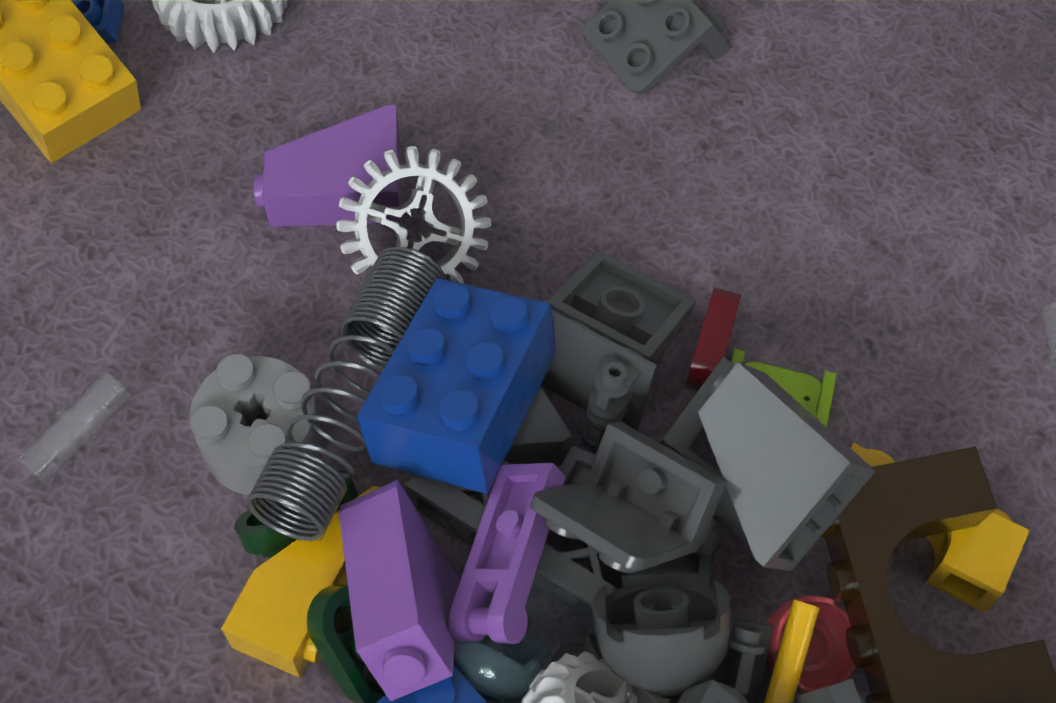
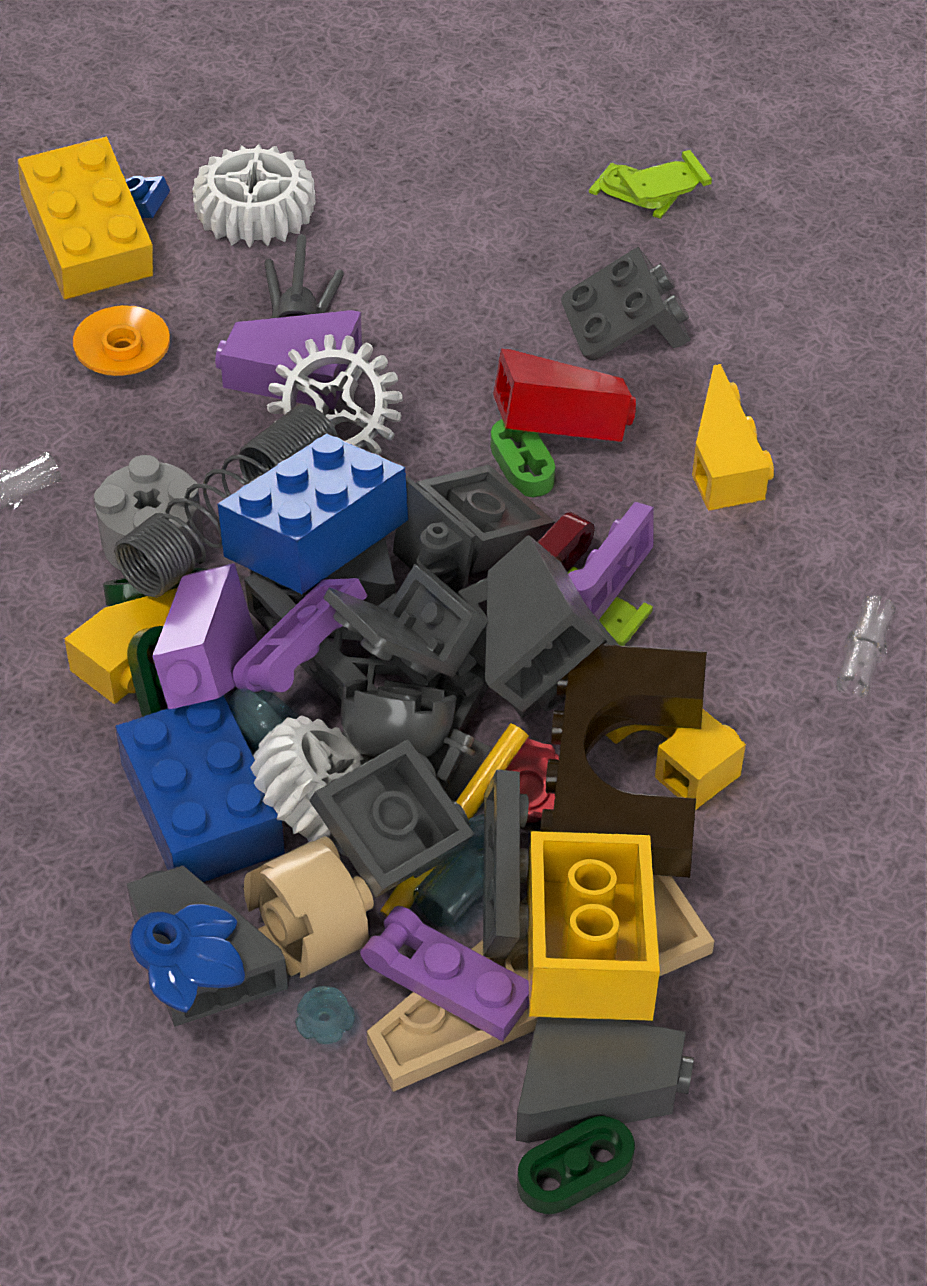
camera: 20 degrees right, 10 degrees down
(135, 185) = (121, 340): none -> light orange dish
(315, 106) = (298, 299): none -> dark grey plant
(630, 224) = (513, 460): none -> bright green beam
(640, 153) = (561, 398): none -> red slope
(778, 342) = (616, 559): none -> medium lavender plate
(829, 167) = (727, 456): none -> yellow slope

